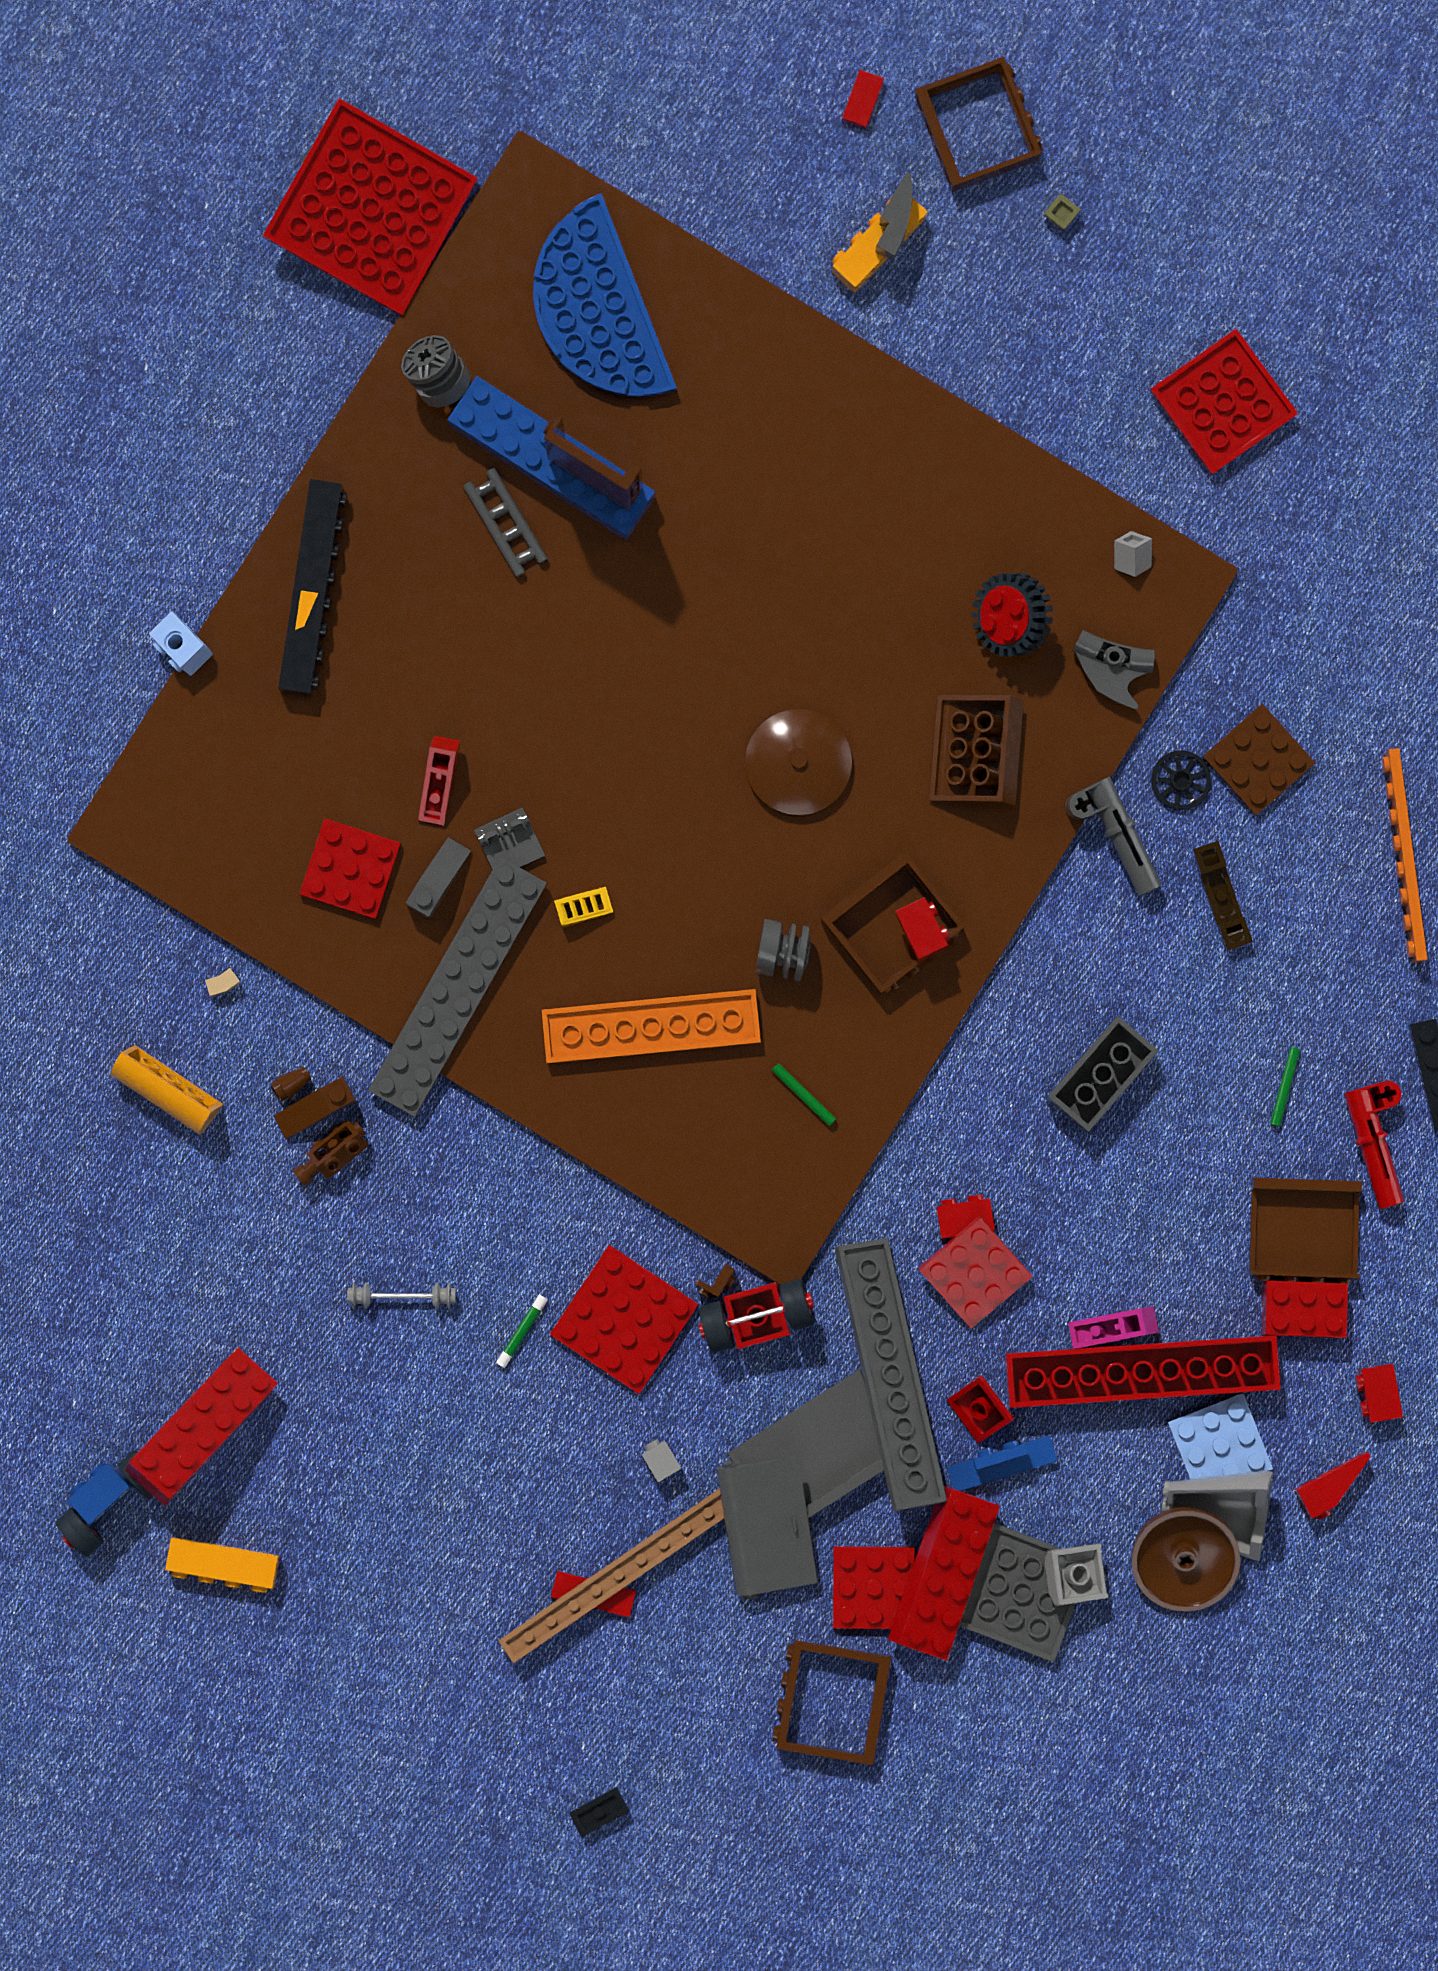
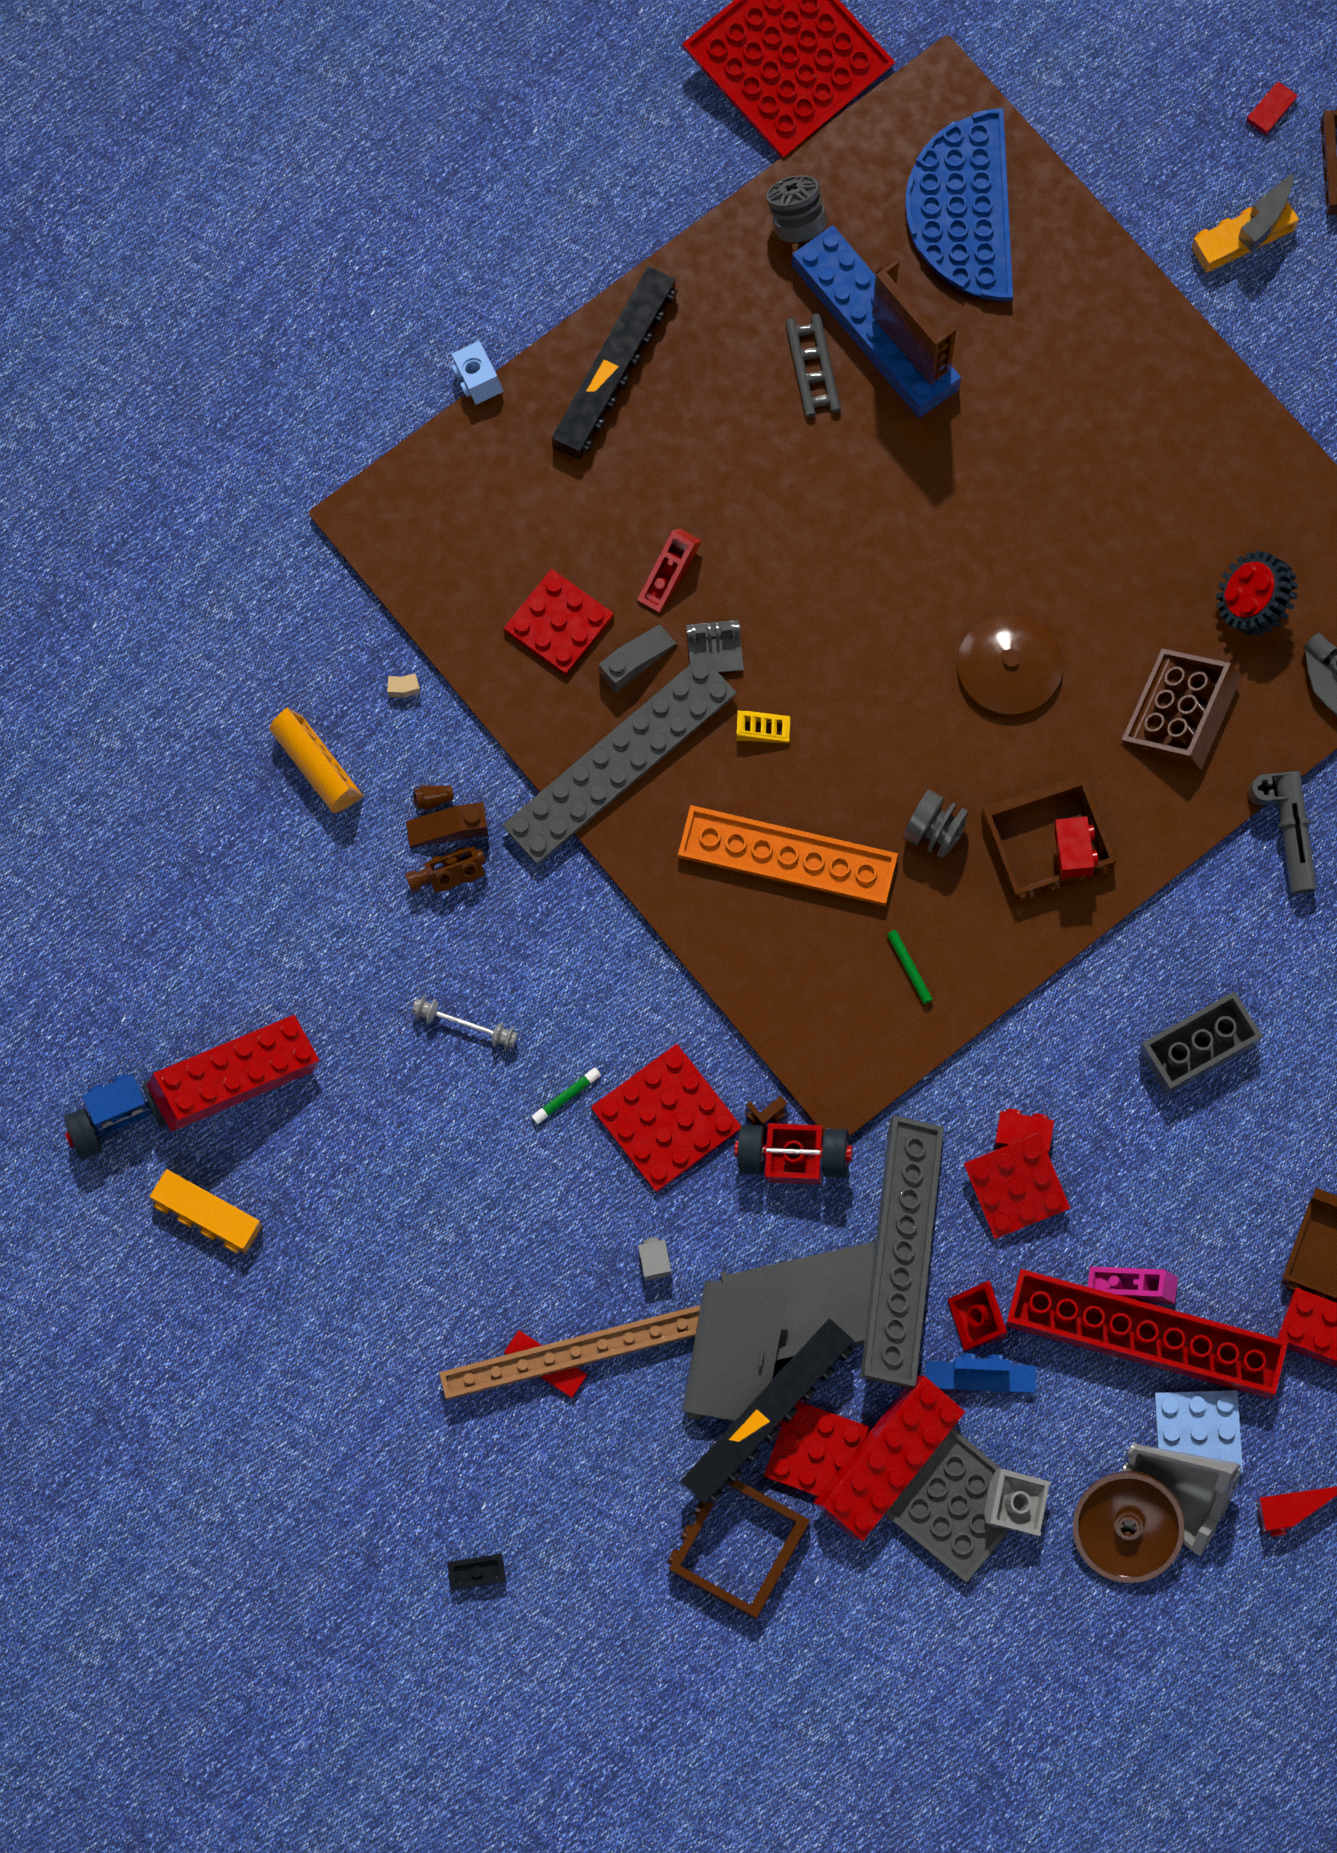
camera: 25 degrees right, 10 degrees down
(817, 1574) = (767, 1412): none -> black brick

